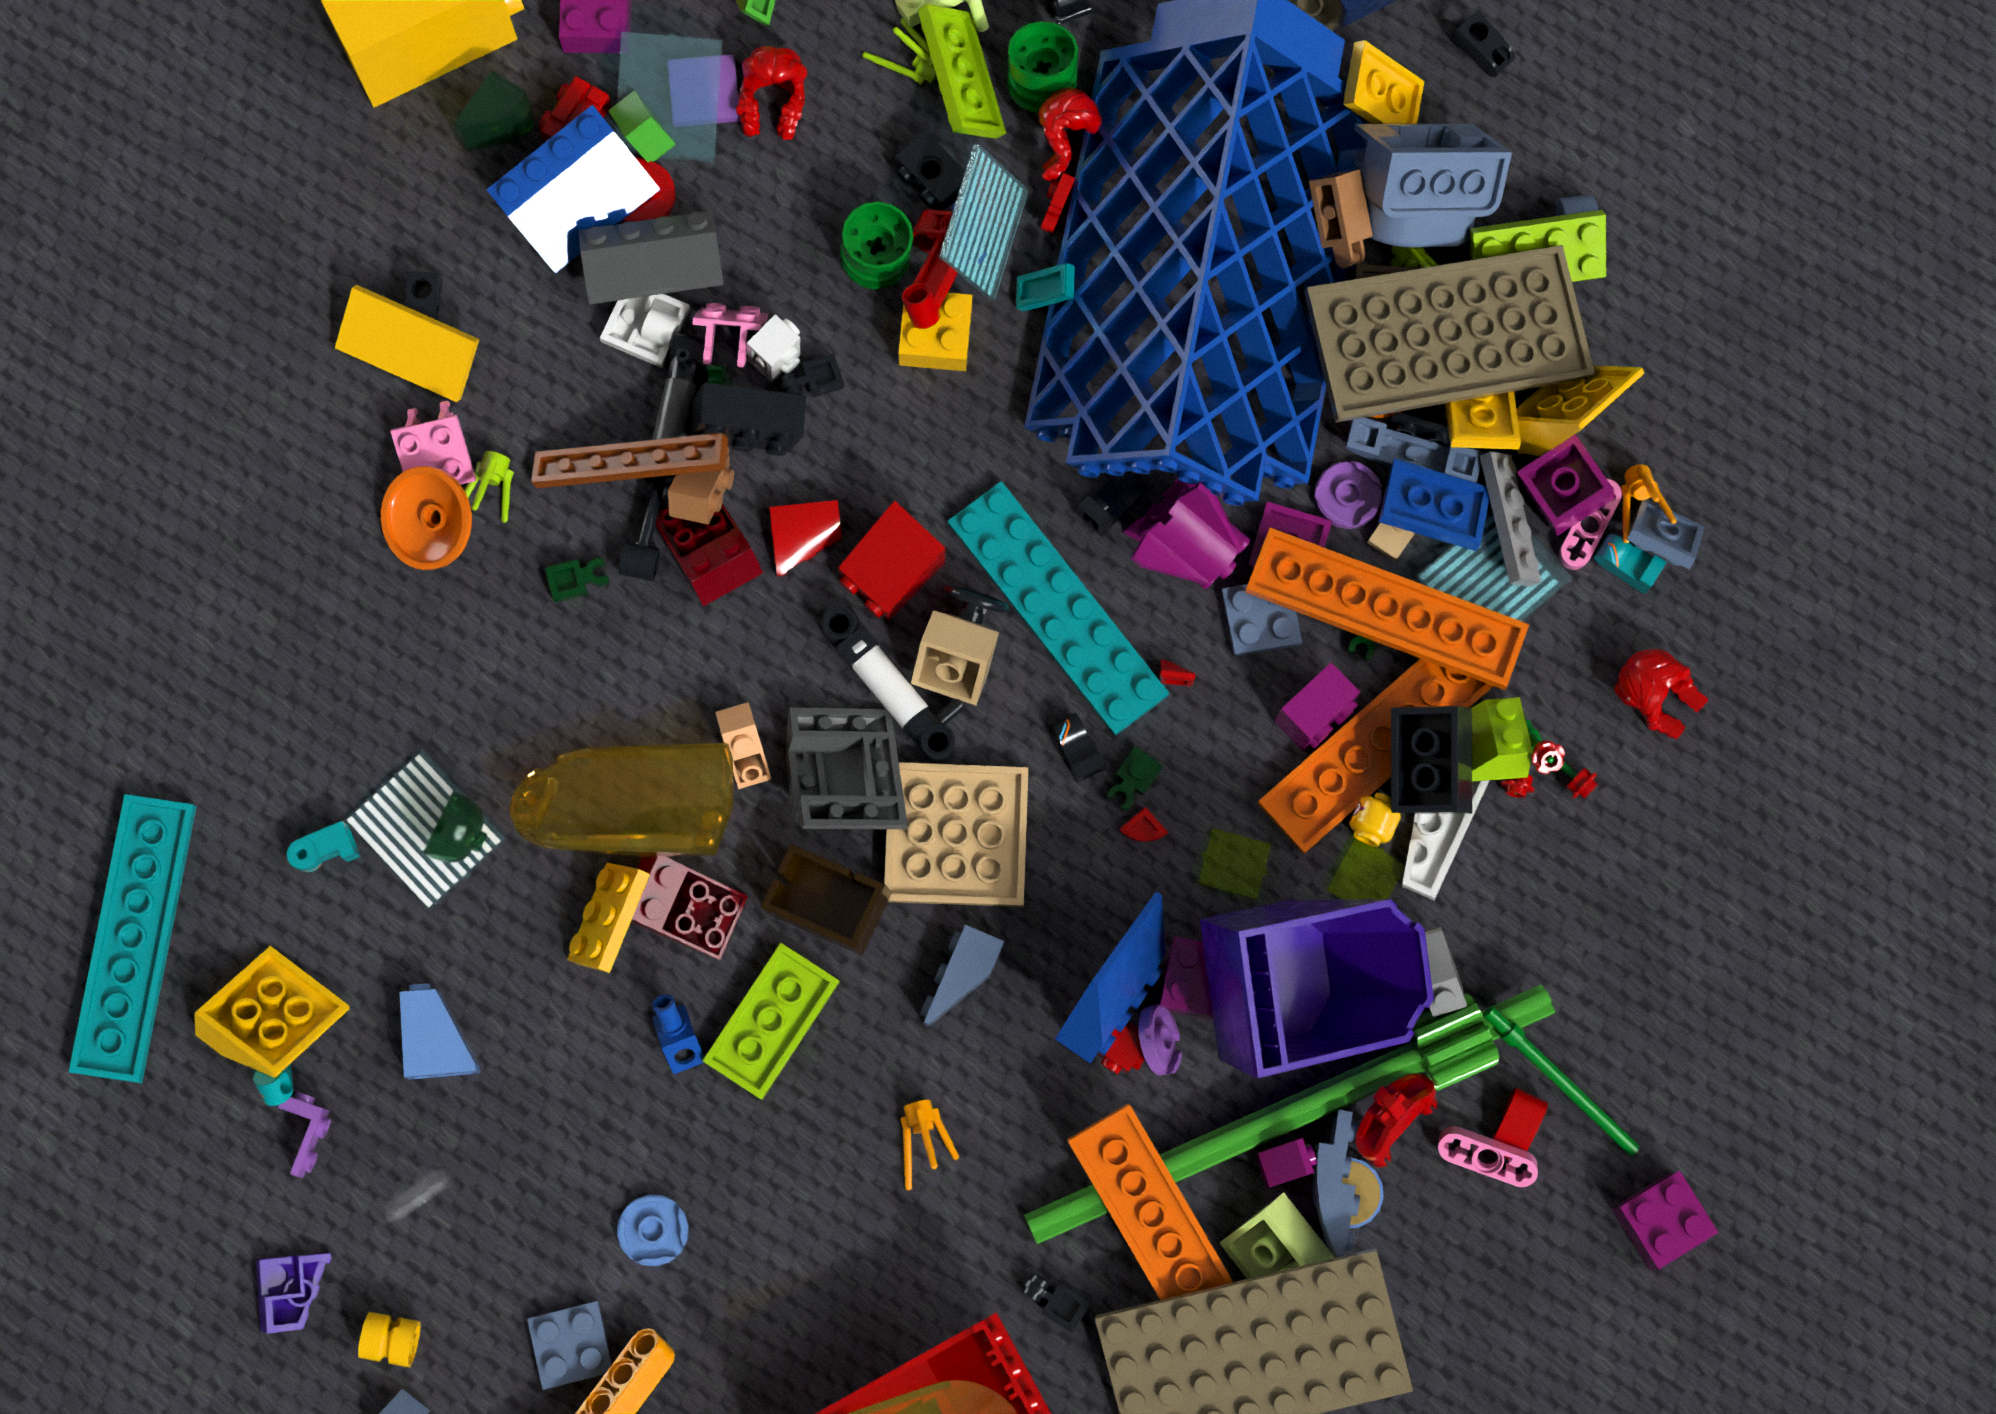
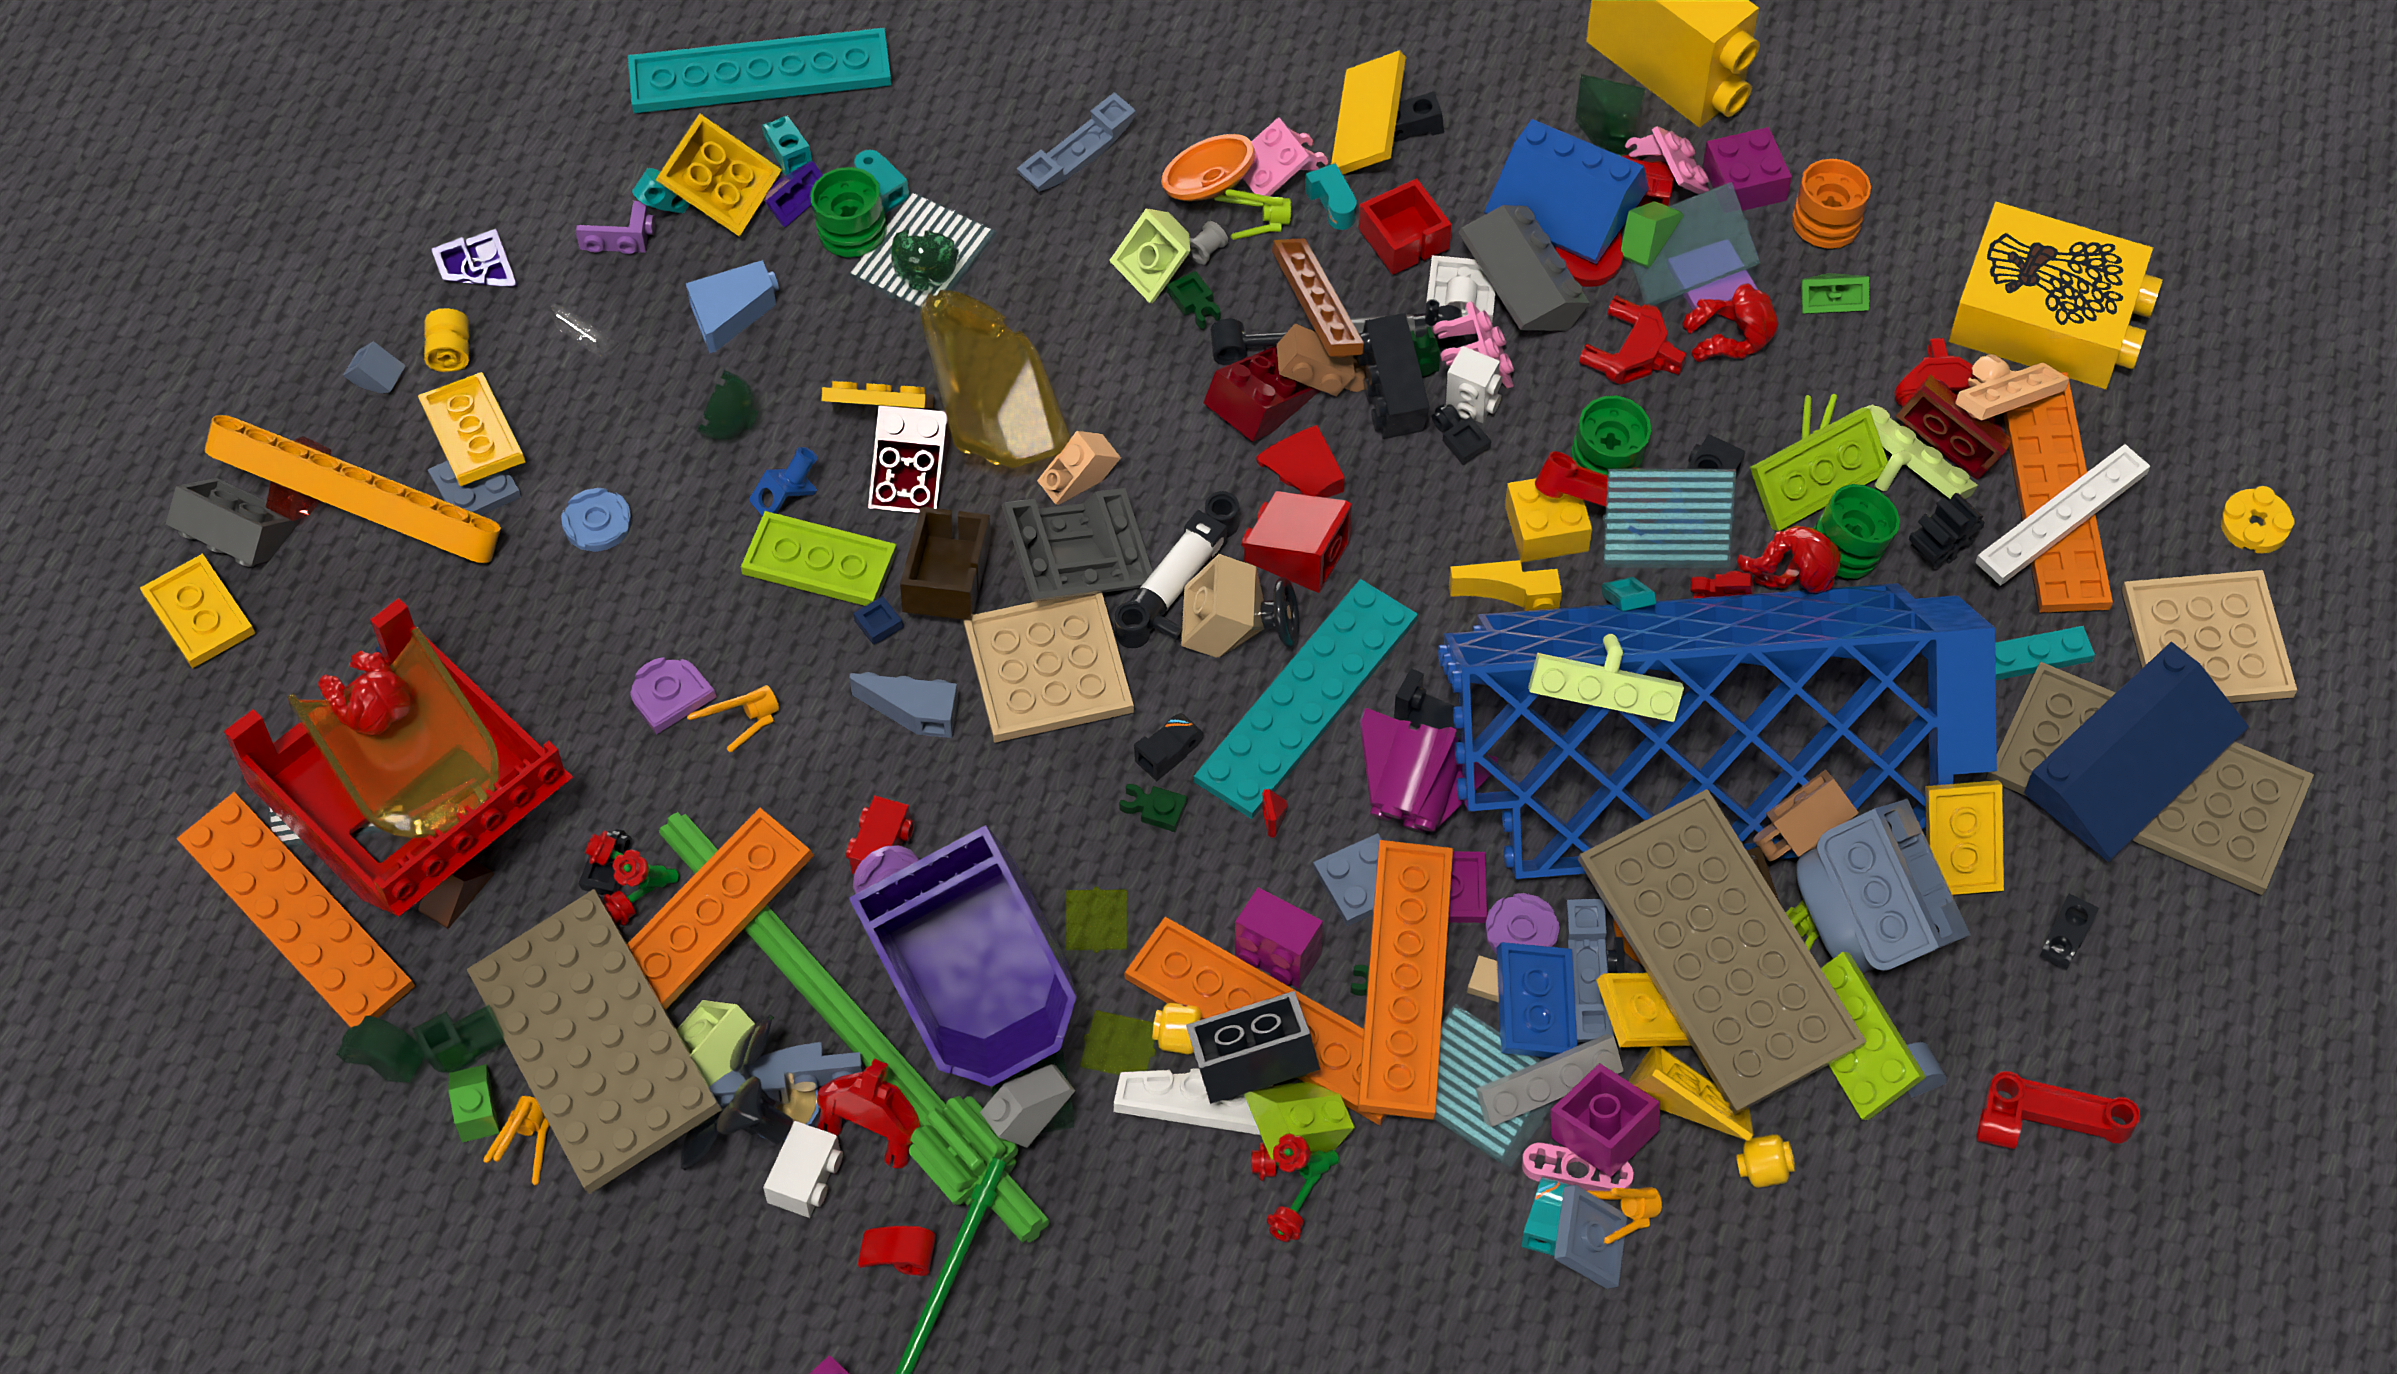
camera: 80 degrees right, 20 degrees down
(246, 932) = (786, 144): none -> teal leg
(307, 940) = (792, 194): none -> dark purple slope
(345, 638) = (1082, 147): none -> sand blue slope
(350, 880) = (848, 212): none -> green wheel
(494, 406) = (1334, 194): none -> teal leg
(510, 547) = (1207, 242): none -> light grey bush
(510, 1335) = (471, 429): none -> yellow tile
(511, 601) = (1152, 252): none -> yellowish green slope
(556, 70) = (1677, 152): none -> bright pink plate
(560, 352) = (1404, 226): none -> red piece
(569, 1068) = (729, 408): none -> clear green cylinder
(768, 178) = (1643, 349): none -> red connector
(859, 981) = (878, 620): none -> dark blue plate
(877, 1201) = (669, 691): none -> medium lavender tile
(995, 386) = (1508, 583): none -> yellow slope
(1105, 1279) = (629, 869): none -> red plant
(1118, 985) = (927, 798): blue slope -> none
(1143, 827) = (1107, 827): red tile -> none
(1217, 335) = (1606, 684): none -> yellowish green plate
(1286, 1162) = (795, 1024): magenta slope -> none
(1411, 1228) = (744, 1109): none -> black plant
(1426, 1188) = (803, 1169): none -> white brick
(1515, 1156) = (861, 1241): bright pink beam -> none
(1631, 356) = (1766, 1160): none -> yellow head
(1641, 164) = (2051, 1105): none -> red piece
(1646, 683) = (1426, 1251): red hair -> none

